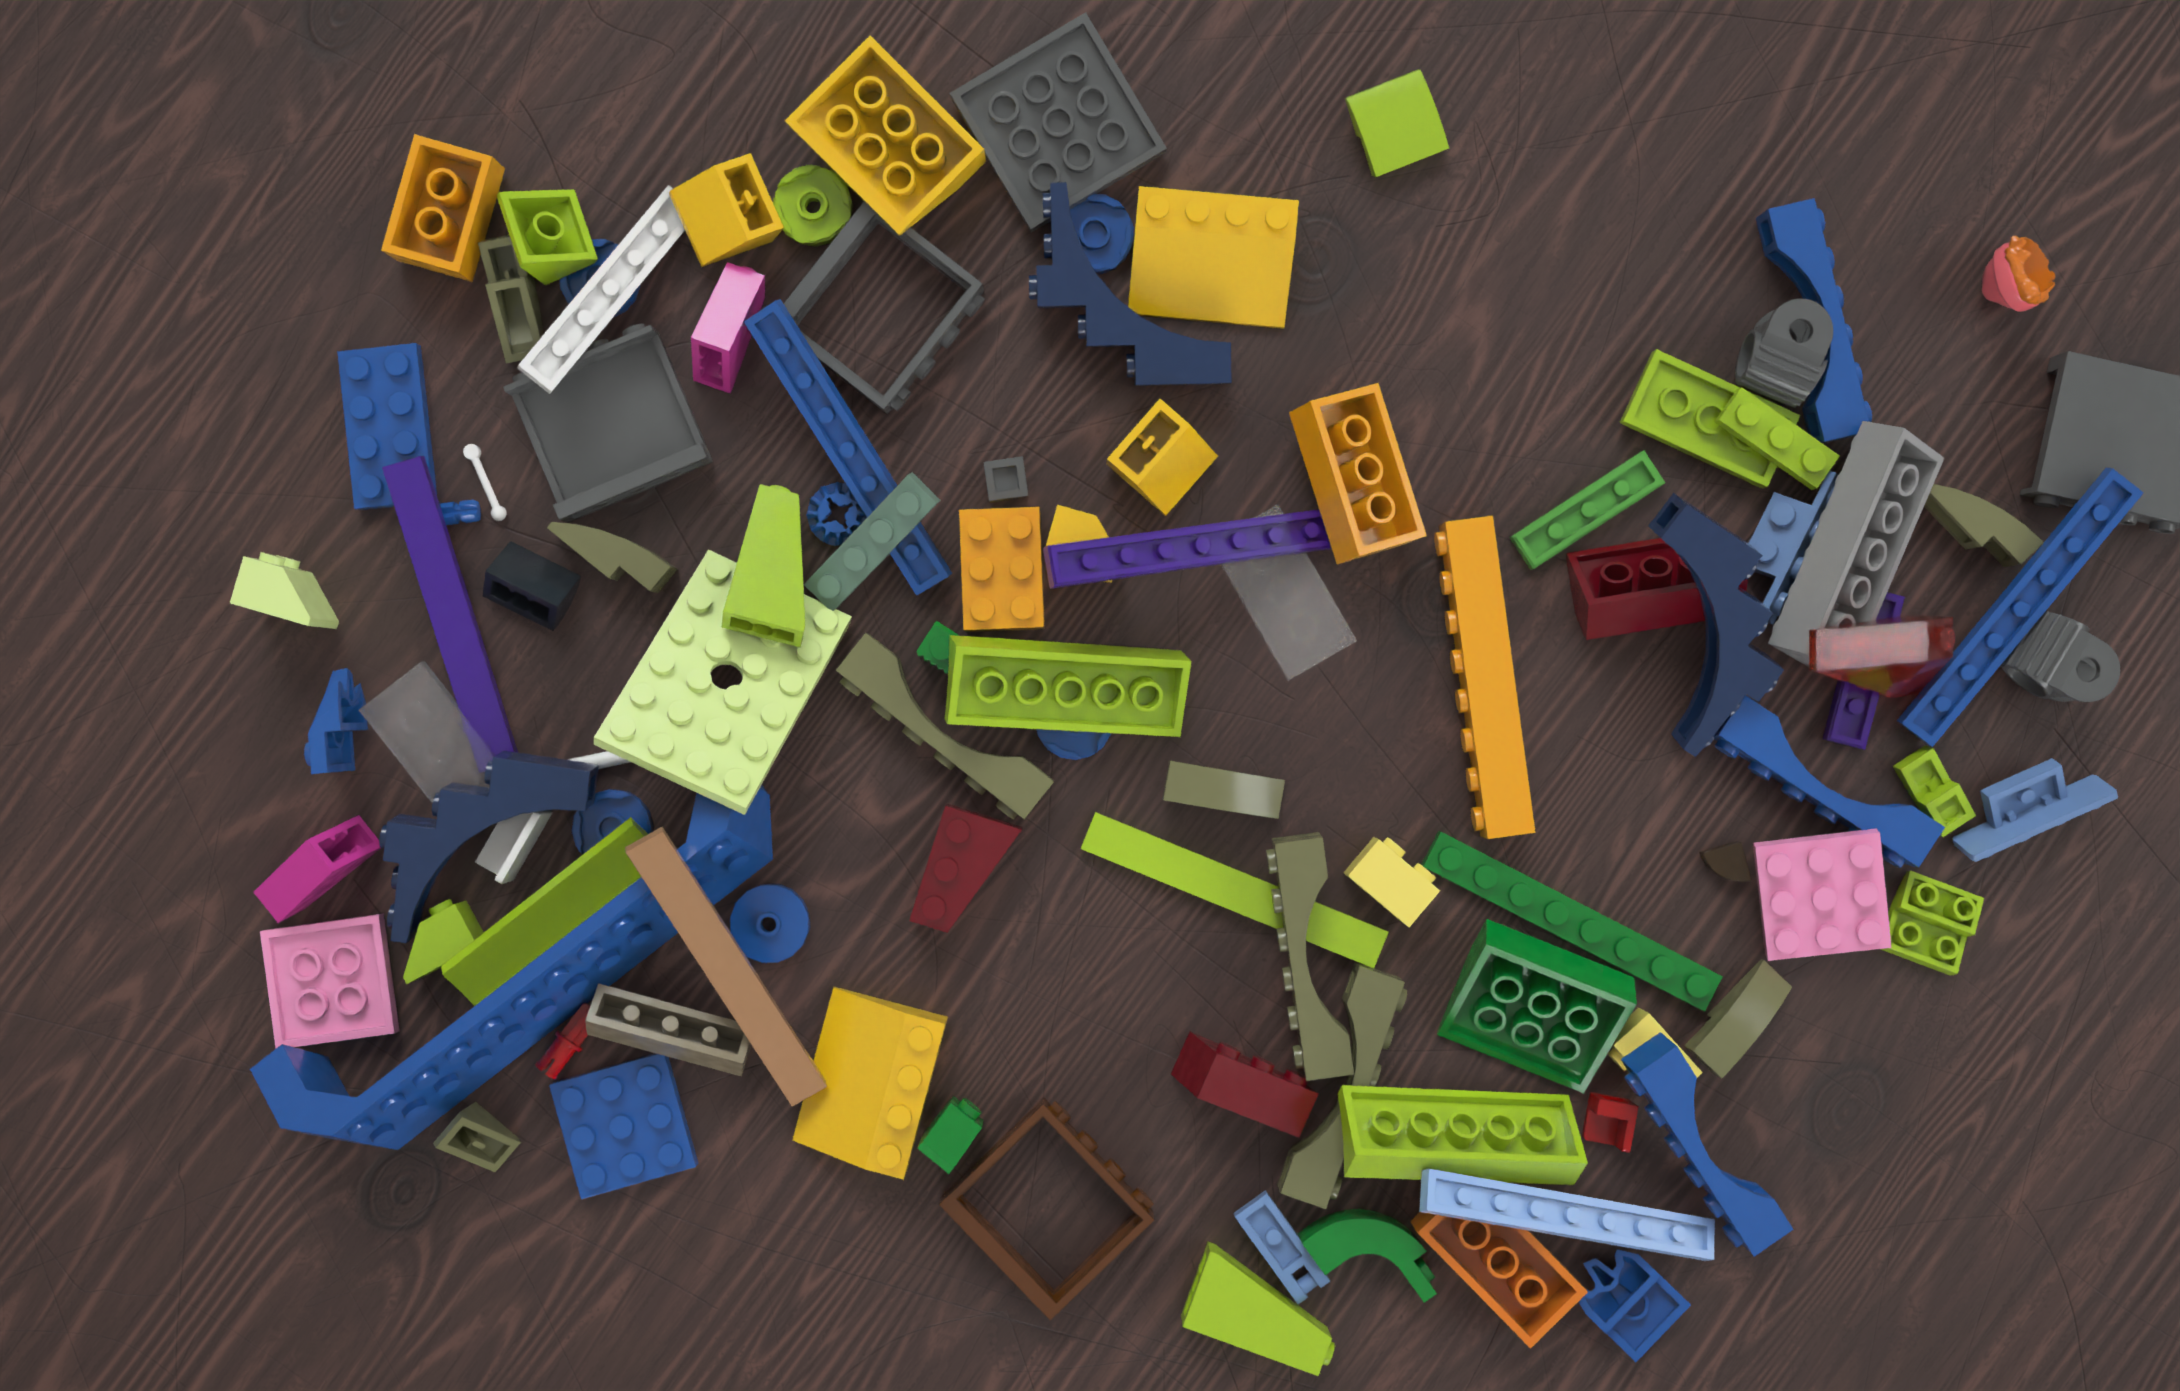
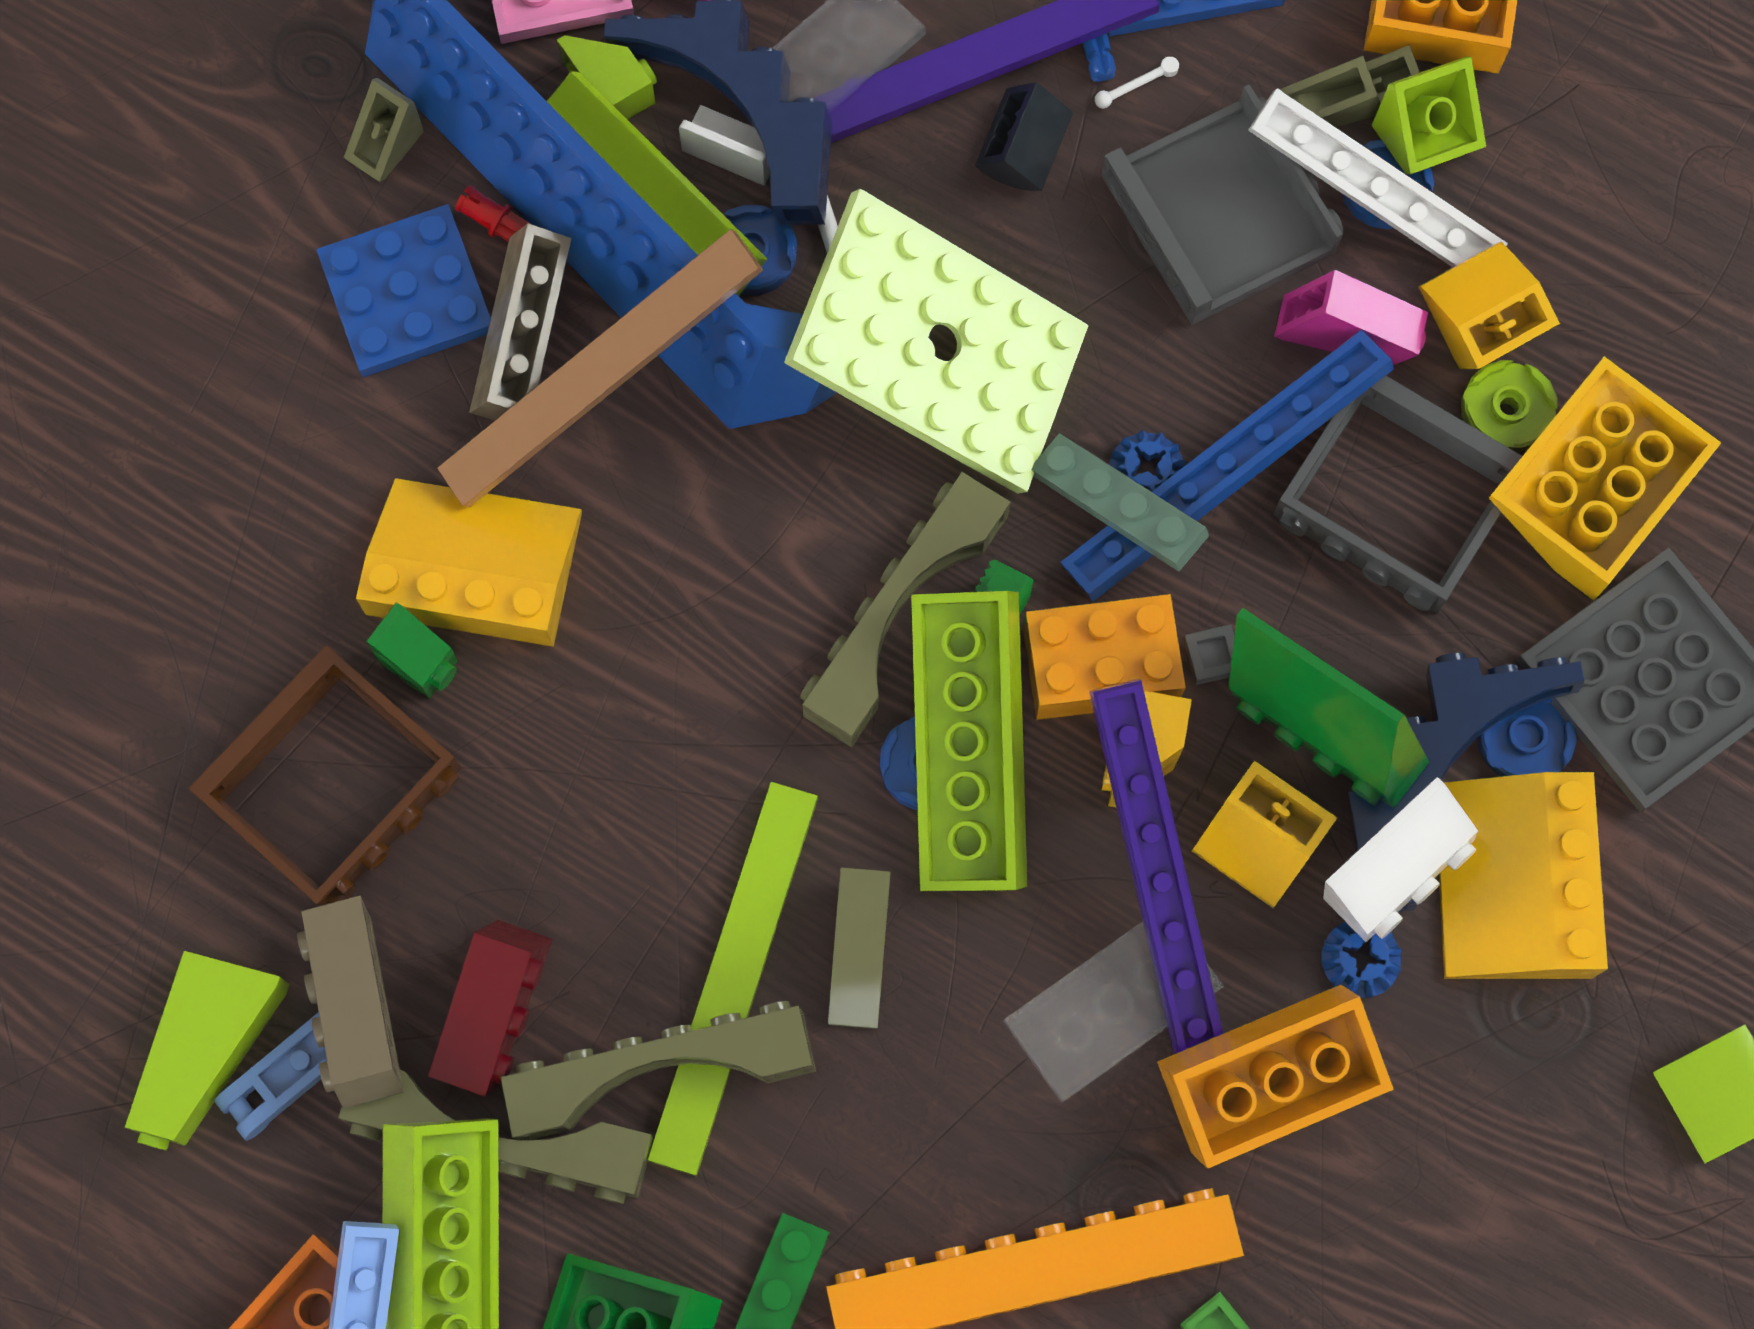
camera: 80 degrees right, 15 degrees down
(615, 555) = (1069, 225): olive slope -> none
(768, 576) = (1069, 383): lime slope -> none
(790, 917) = (653, 453): blue plate -> none
(959, 863) = (741, 636): dark red wedge -> none
(1077, 398) = (1323, 713): none -> green slope
(1207, 352) = (1402, 862): none -> white slope
(1236, 1196) = (350, 1003): none -> dark tan brick
(1246, 398) = (1342, 969): none -> blue gear
(1362, 1231) = (307, 1189): green arch -> none
(1392, 881) = (761, 1172): light yellow brick -> none

